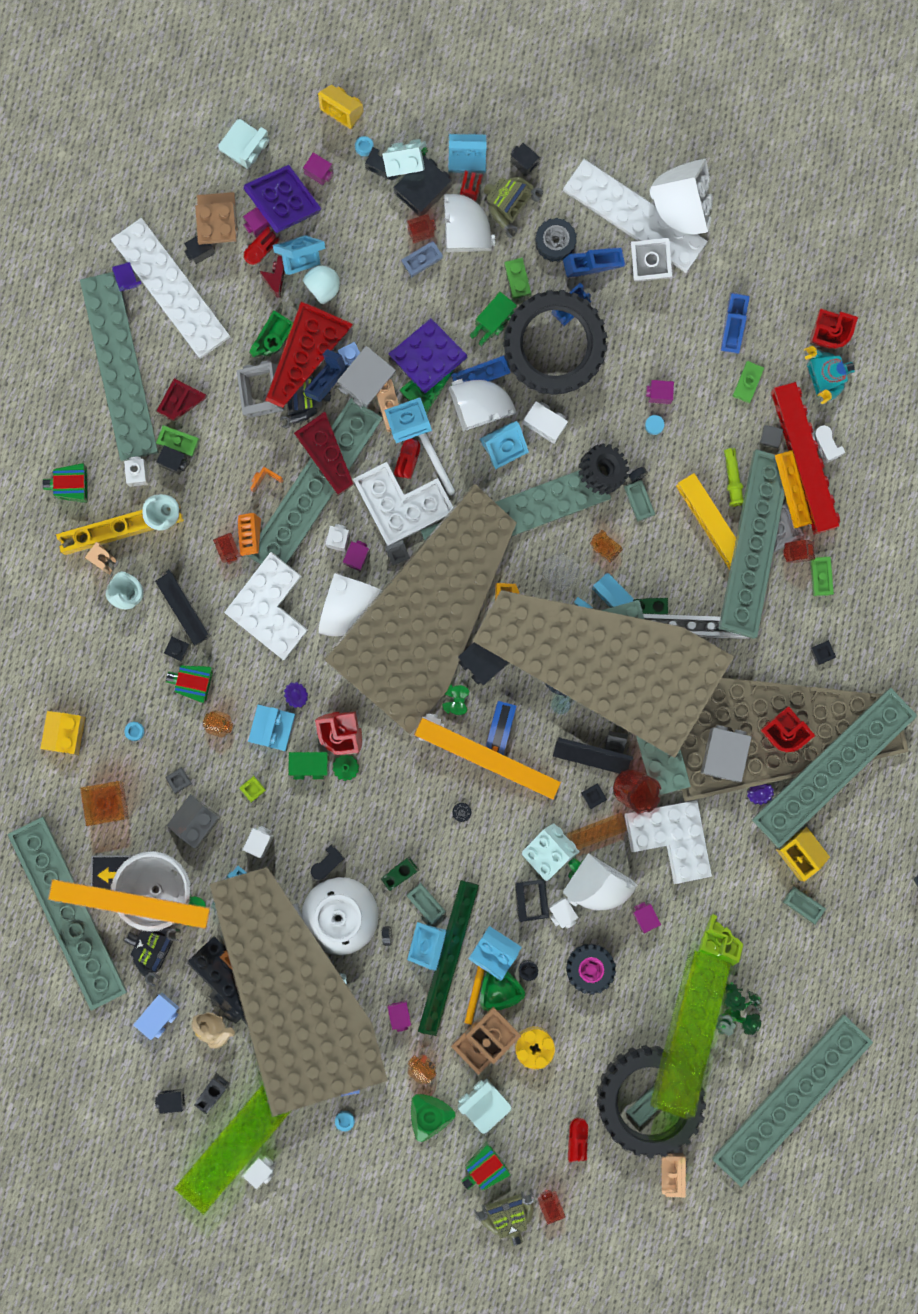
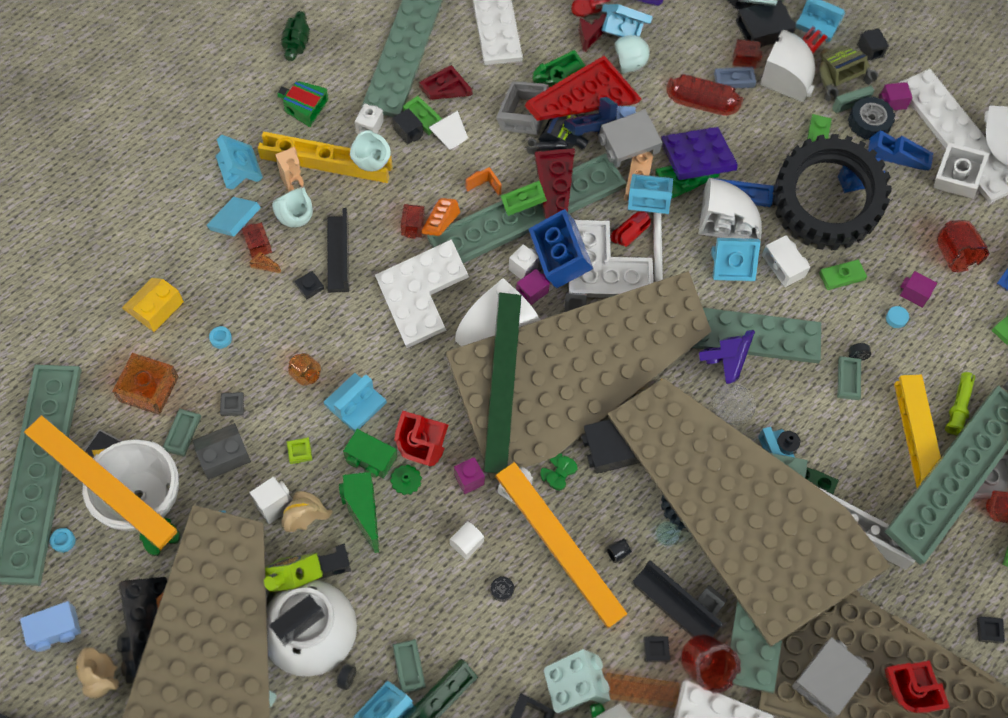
camera: 35 degrees right, 20 degrees down
(22, 422) = (295, 36): none -> dark green piece
(51, 572) = (237, 162): none -> medium azure bracket
(80, 624) = (233, 216): none -> medium azure tile
(111, 634) = (256, 239): none -> clear red brick
(120, 951) = (62, 540): none -> medium azure tile
(127, 650) = (264, 263): none -> clear orange piece
(151, 950) = (93, 552): torso -> none
(154, 823) = (181, 432): none -> sand green tile
(192, 682) = (305, 319): torso -> none
(209, 443) = (450, 130): none -> white sticker
(284, 835) = (303, 511): none -> tan hair
(295, 695) = (397, 382): dark purple piece -> none
(307, 888) = (283, 576): none -> lime torso
(308, 482) = (523, 198): none -> bright green plate
(325, 808) = (359, 497): none -> green slope
(335, 924) = (297, 620): none -> black panel
(362, 514) = (560, 248): none -> blue brick
(380, 659) = (502, 383): none -> dark green tile
(392, 741) = (469, 475): none -> magenta brick
(399, 873) = (398, 616): dark green leg -> none
(404, 292) = (704, 95): none -> clear red brick
(417, 791) = (467, 540): none -> white piece
(494, 318) = (774, 151): green hinge -> none
(500, 727) = (593, 519): blue slope -> none
(531, 230) = (848, 100): none -> sand green tile
(531, 738) = (618, 550): none -> black hose
(538, 536) = (732, 353): none -> dark purple piece
(566, 206) = (897, 95): none -> magenta brick
(595, 408) = (843, 274): none -> bright green plate
(605, 546) = (792, 401): clear orange bracket -> none
(611, 461) = (835, 320): black tyre -> none
(616, 587) = (788, 442): none -> black tile
(678, 333) = (961, 245): none -> clear red cylinder

